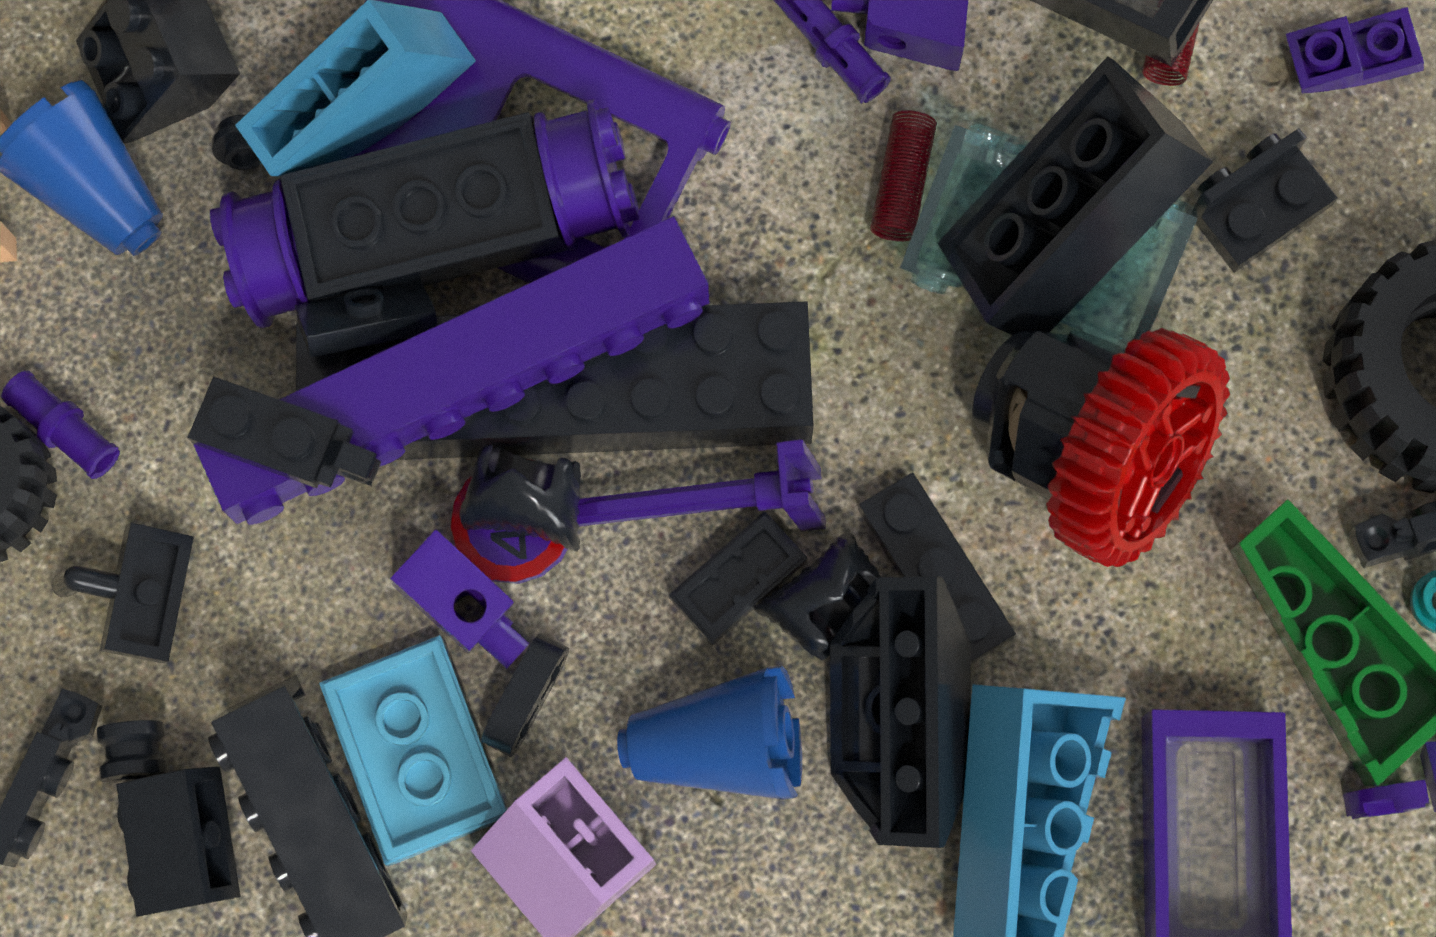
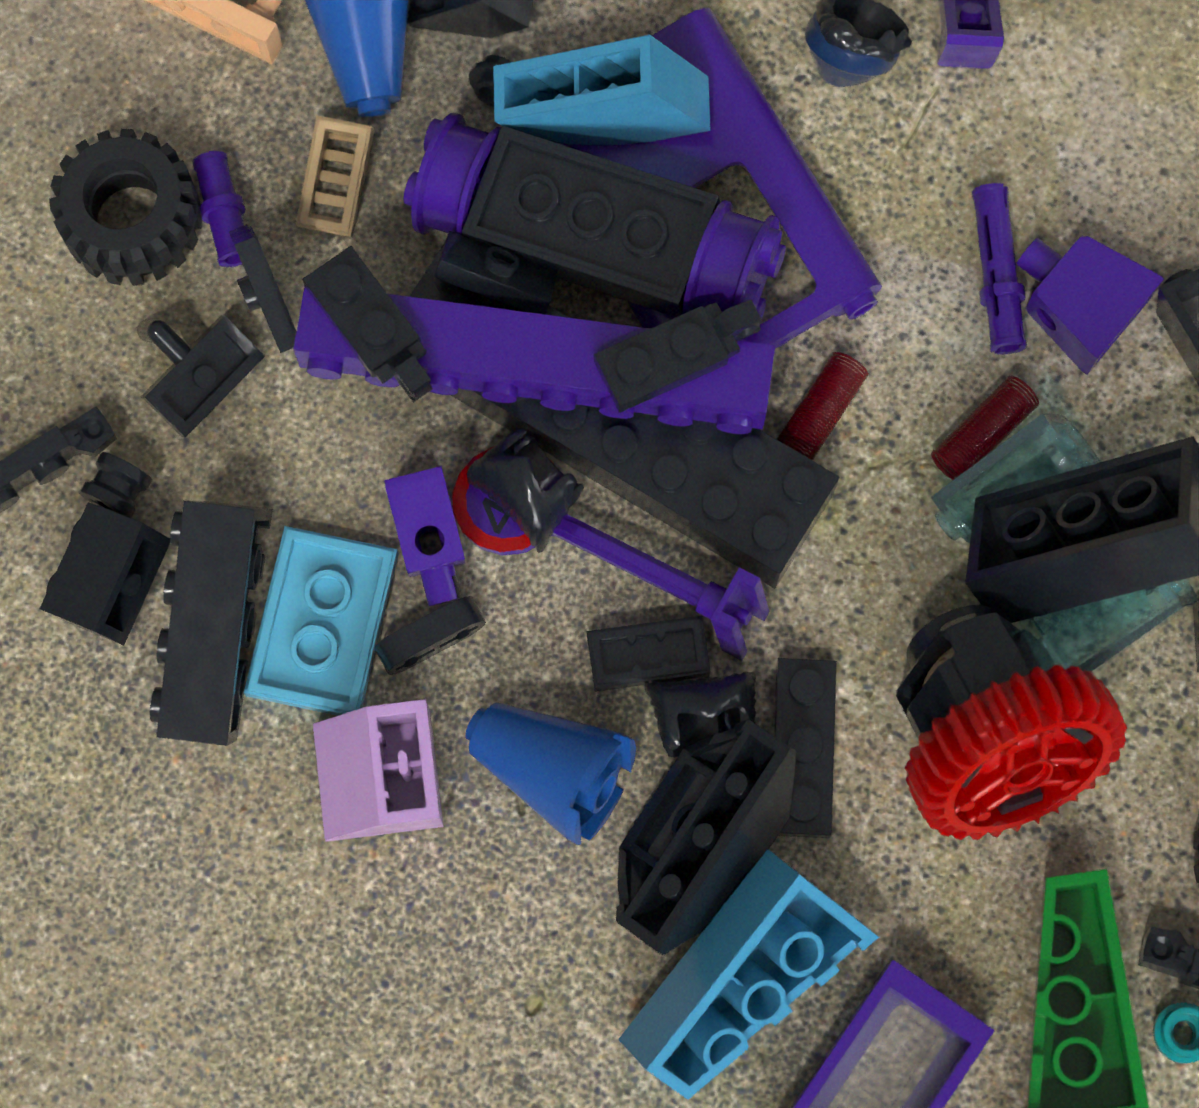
camera: 30 degrees right, 0 degrees up
(131, 278) = (339, 130): none -> tan slope
(150, 473) = (261, 288): none -> black plate
(586, 282) = (674, 352): none -> black hinge
(746, 225) = (824, 405): none -> dark red piece

